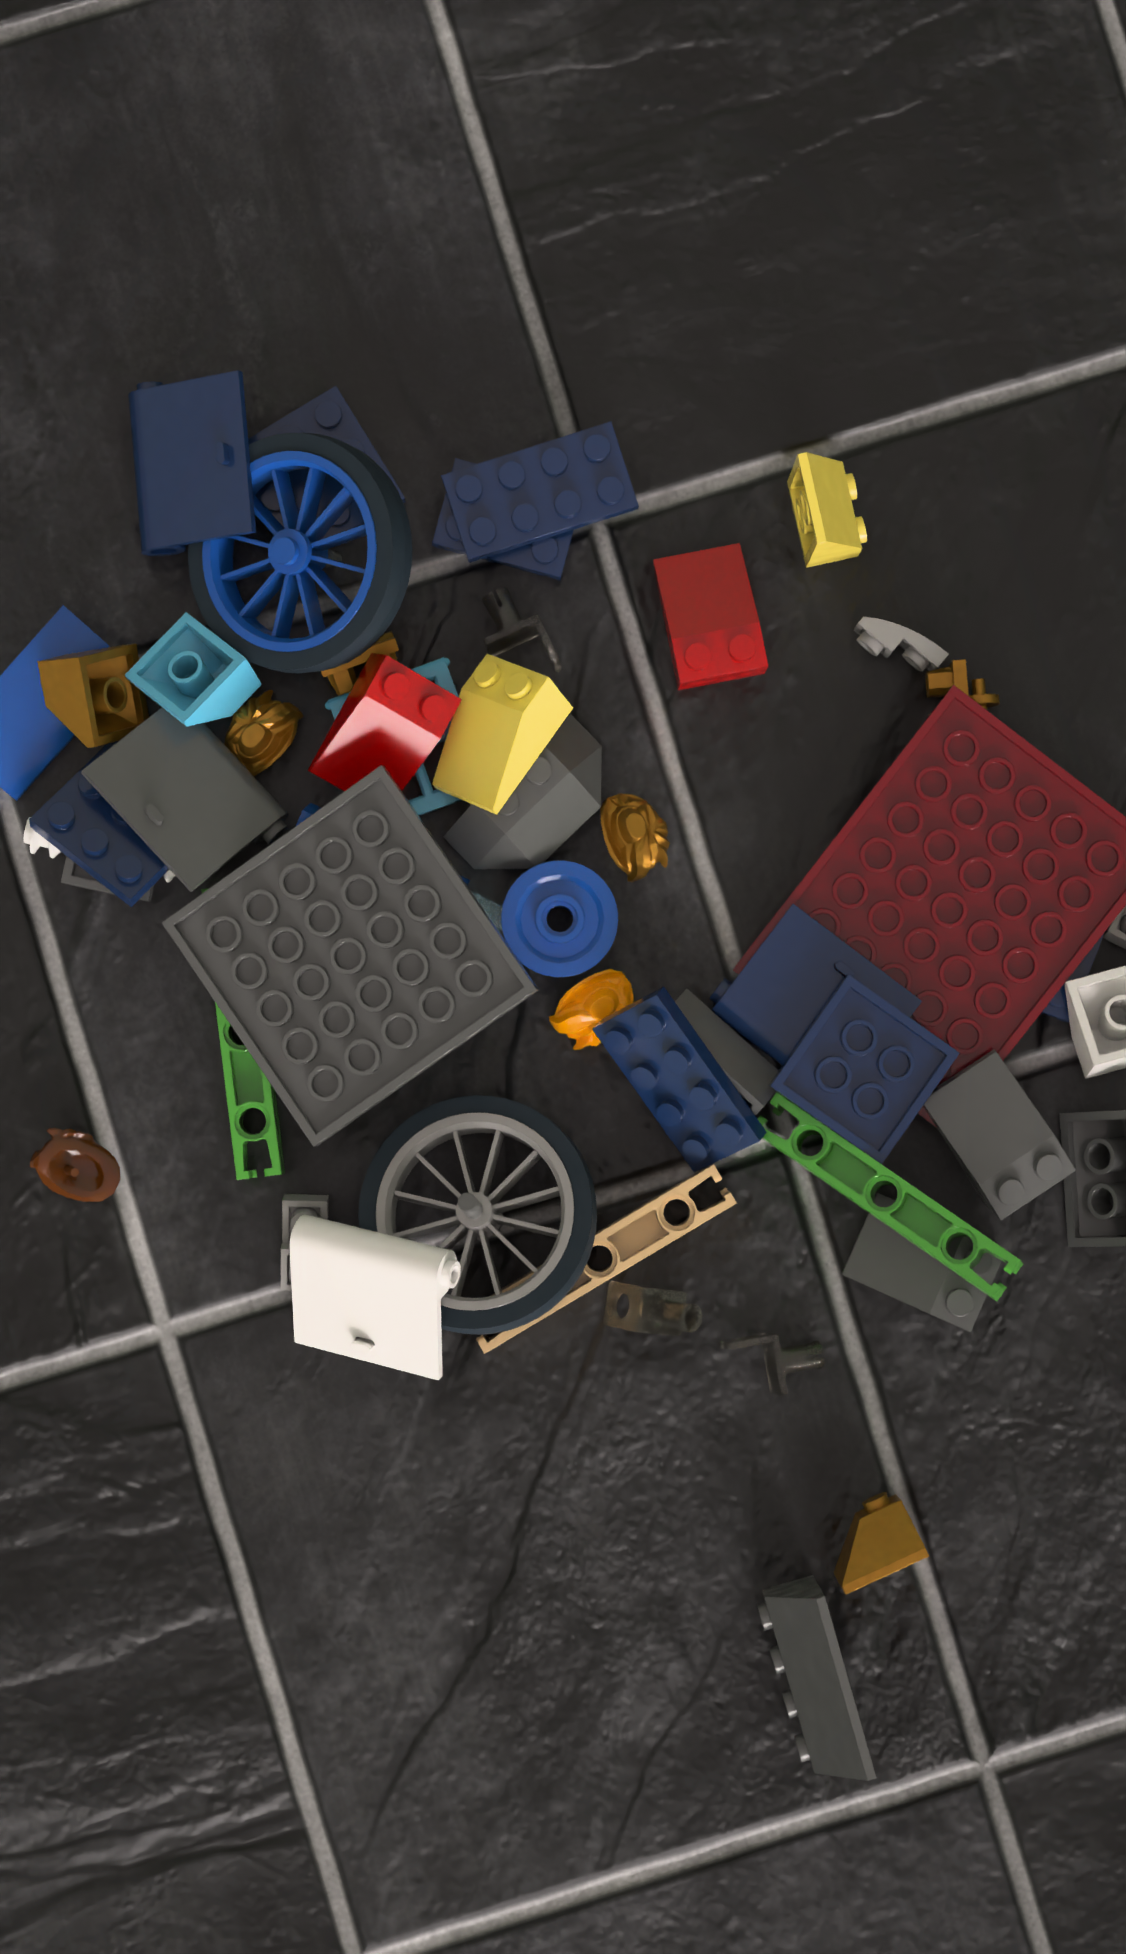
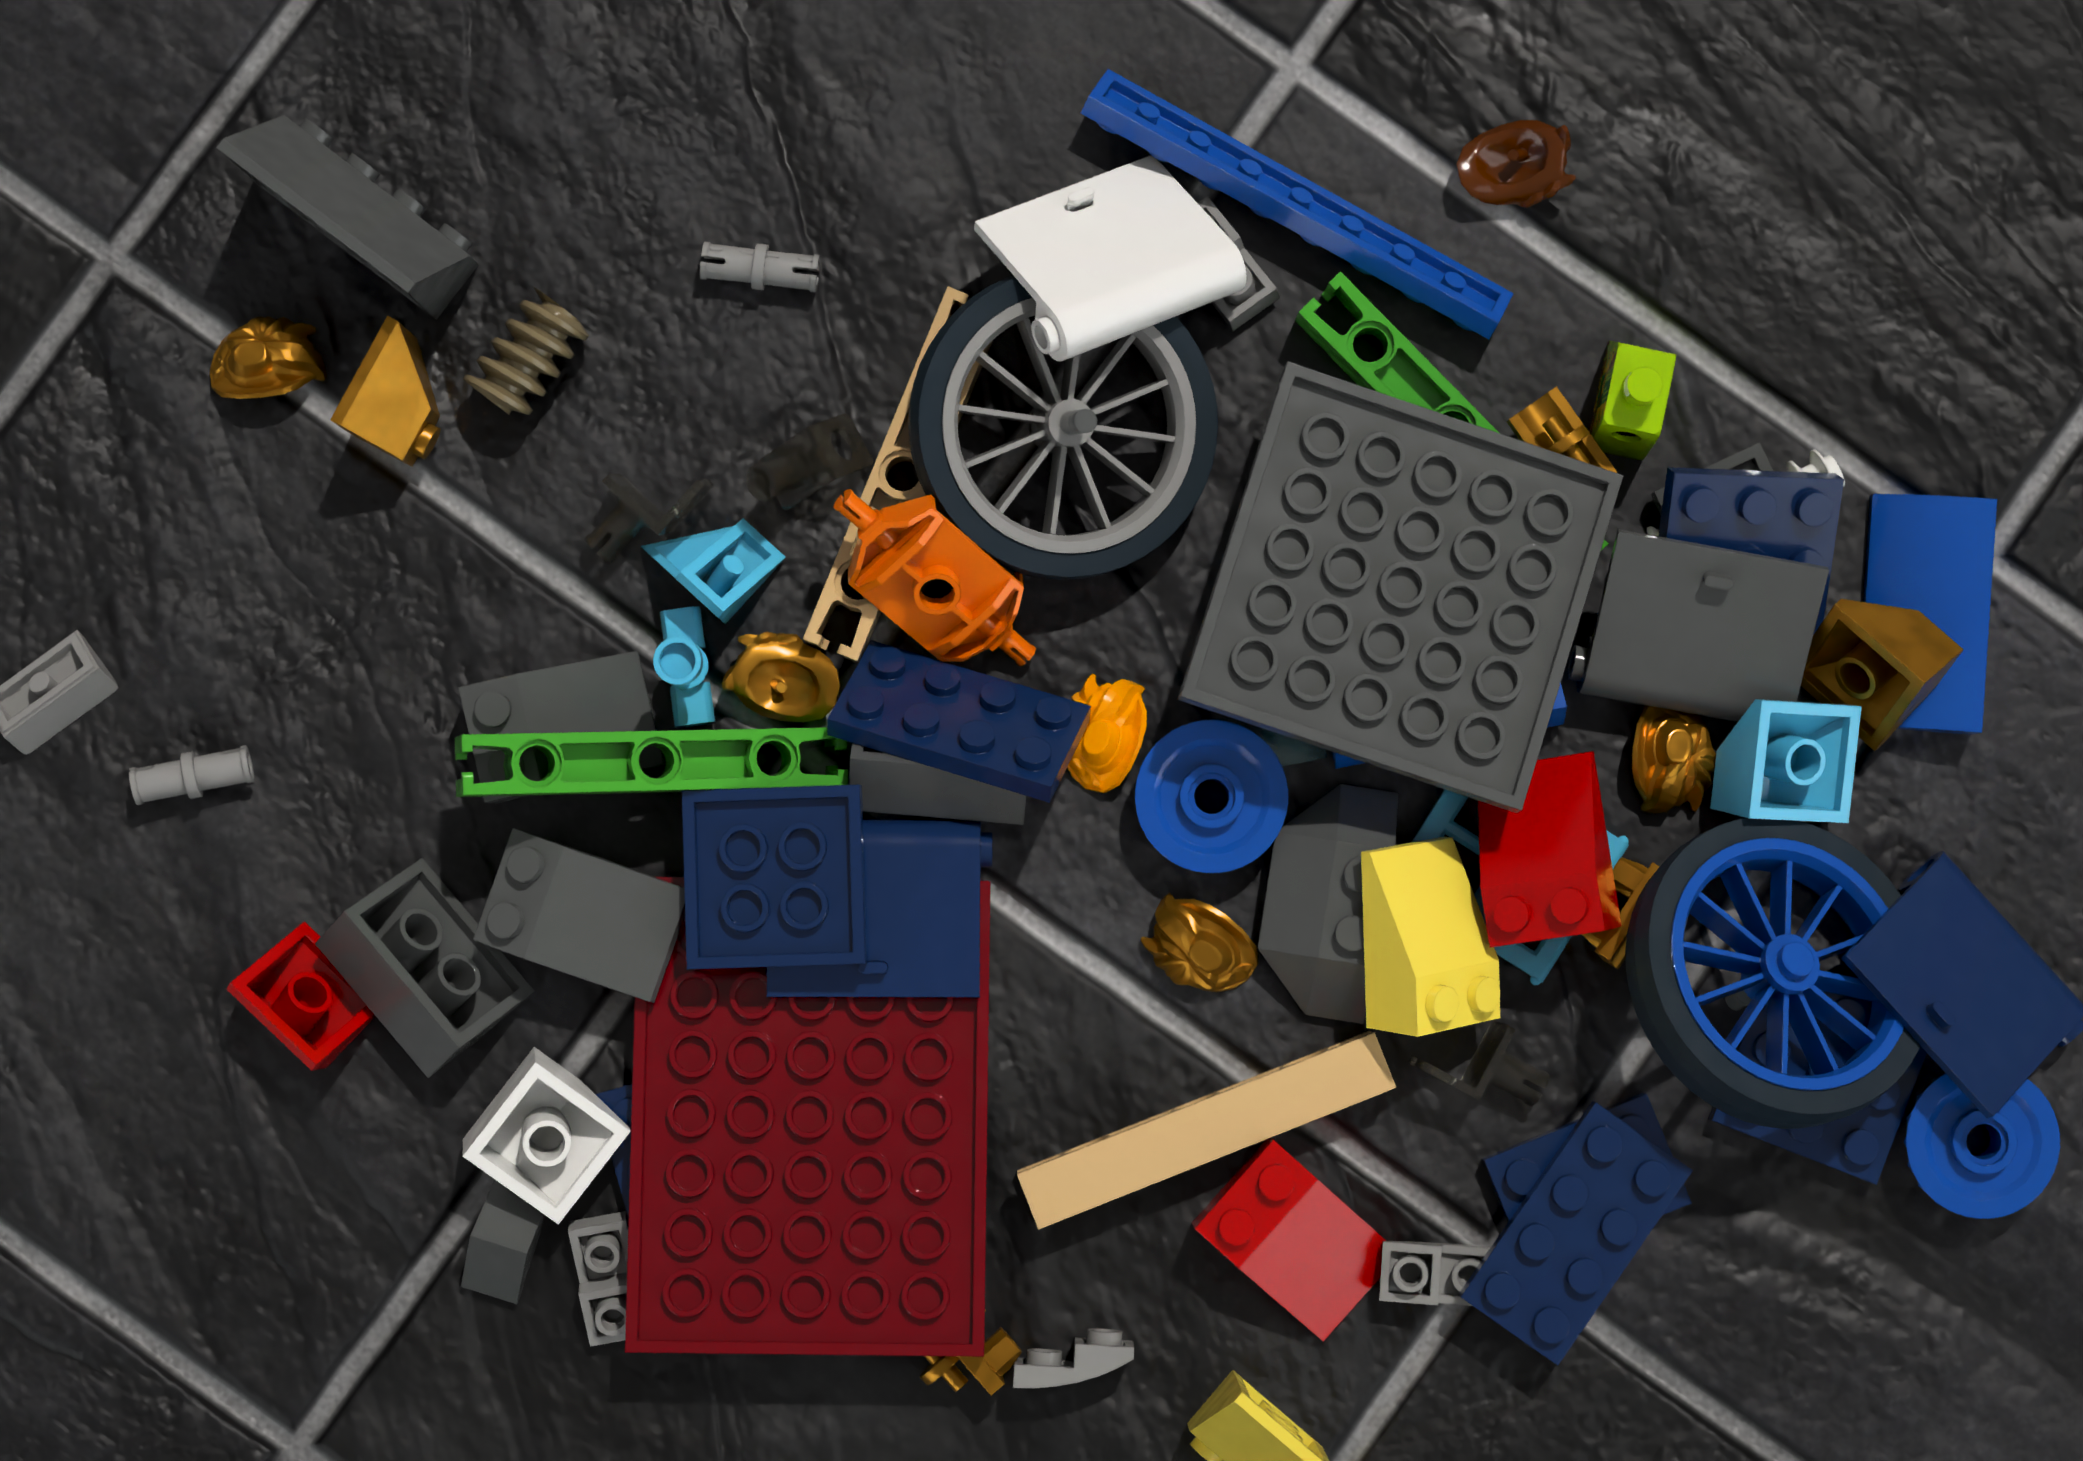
camera: 145 degrees right, 0 degrees up
(118, 968) = (1631, 399): none -> lime torso
(179, 984) = (1556, 427): none -> pearl gold hips
(229, 1243) = (1297, 204): none -> blue plate
(261, 333) = (2003, 1177): none -> blue gear
(589, 1455) = (760, 266): none -> light grey pin
(626, 1206) = (916, 544): none -> orange plate
(645, 537) = (1427, 1271): none -> light grey slope
(715, 722) = (1205, 1129): none -> tan piece
(753, 1289) = (719, 565): none -> medium azure slope
(765, 1189) = (783, 678): none -> pearl gold hat
(774, 1507) = (527, 354): none -> dark tan piece
(821, 1242) = (685, 666): none -> medium azure bar
(938, 1628) = (265, 359): none -> pearl gold hat

